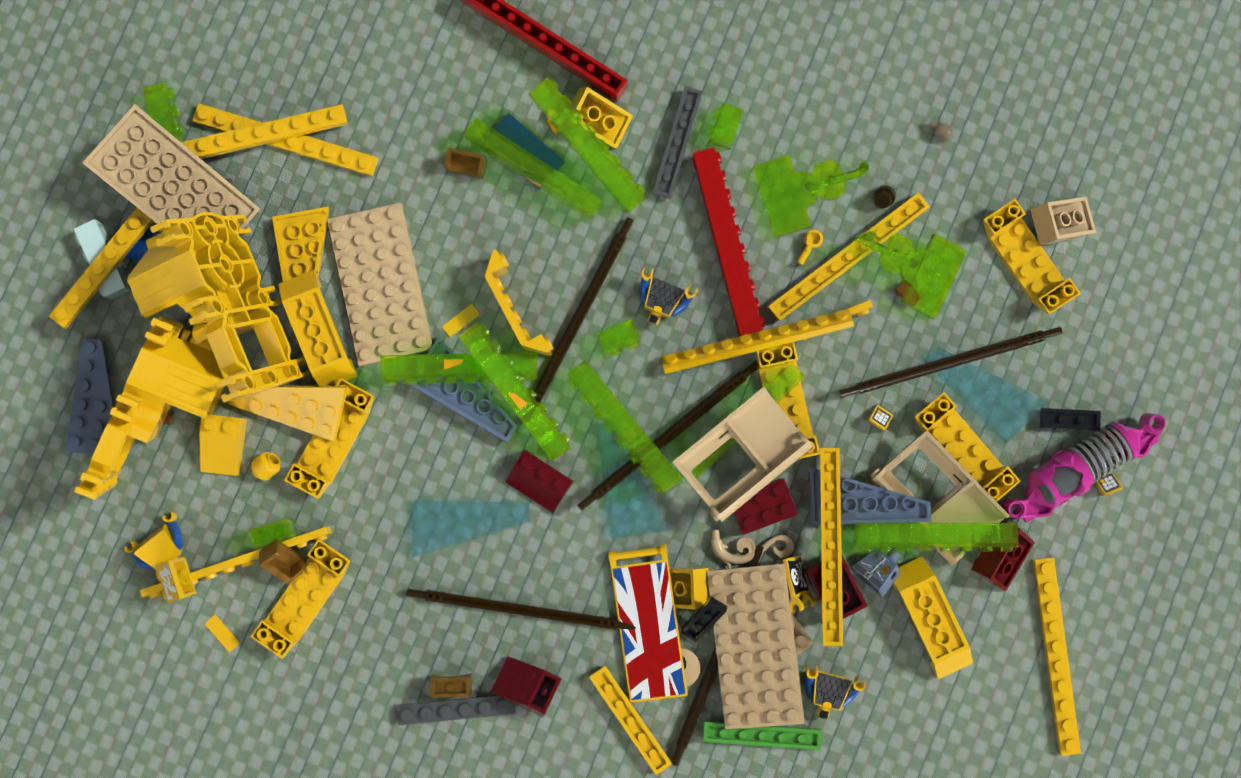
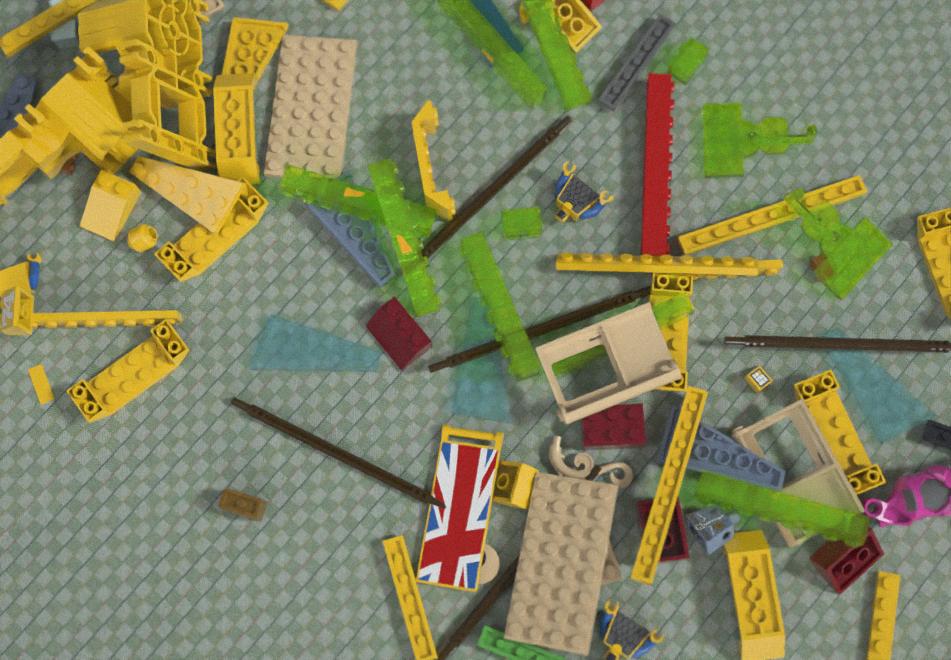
camera: 20 degrees right, 10 degrees down
(268, 533) = (125, 300): clear neon green brick -> none
(281, 561) = (123, 329): pearl gold panel -> none
(453, 709) = (239, 531): dark grey plate -> none
(461, 320) = (362, 166): yellow sticker -> none
(465, 163) = (429, 22): pearl gold panel -> none
(526, 686) = (318, 529): dark red slope -> none
(703, 619) = (517, 517): black plate -> none
(797, 583) = (624, 513): flag -> none
(812, 240) = (741, 189): yellow plate -> none
(884, 196) = (824, 169): dark brown piece -> none
(941, 130) = (898, 126): dark tan cylinder -> none

